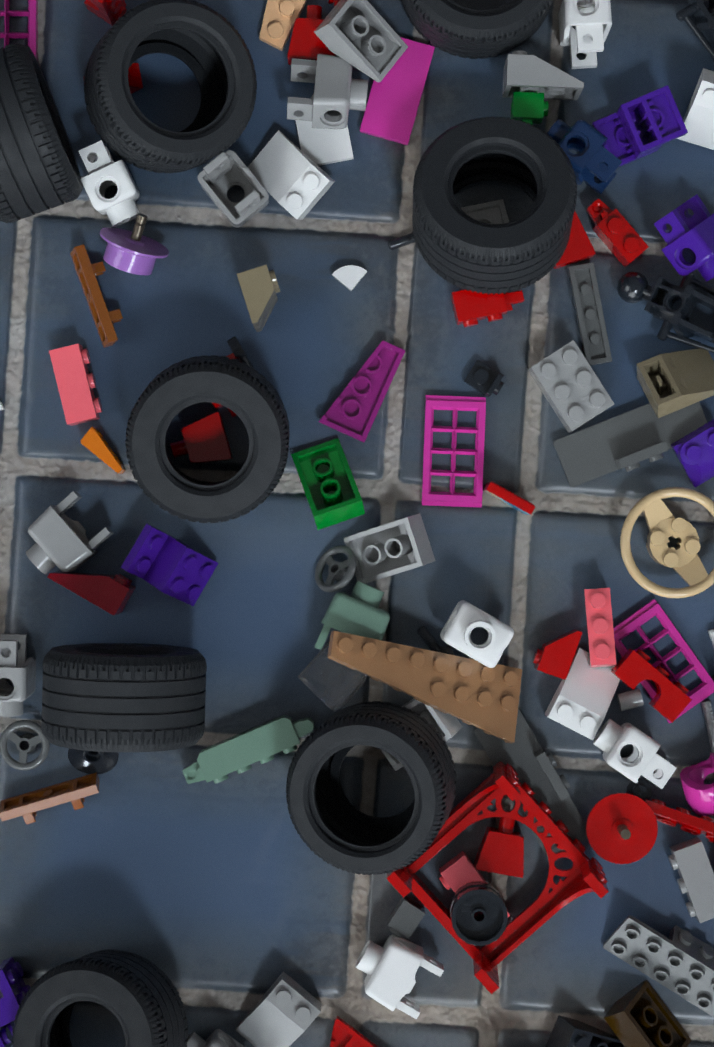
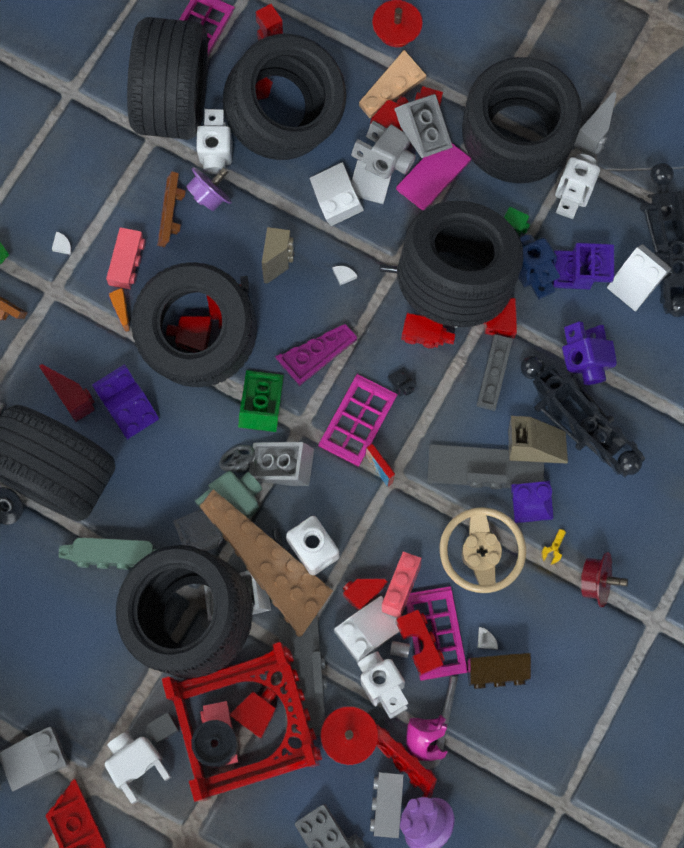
camera: 25 degrees right, 15 degrees down
(61, 539) = (61, 352): light grey piece -> none
(226, 172) = (293, 183): light grey piece -> none
(535, 75) = (528, 201): light grey slope -> none
(571, 386) = (459, 412): light grey brick -> none
(616, 233) = (537, 328): red hinge -> none

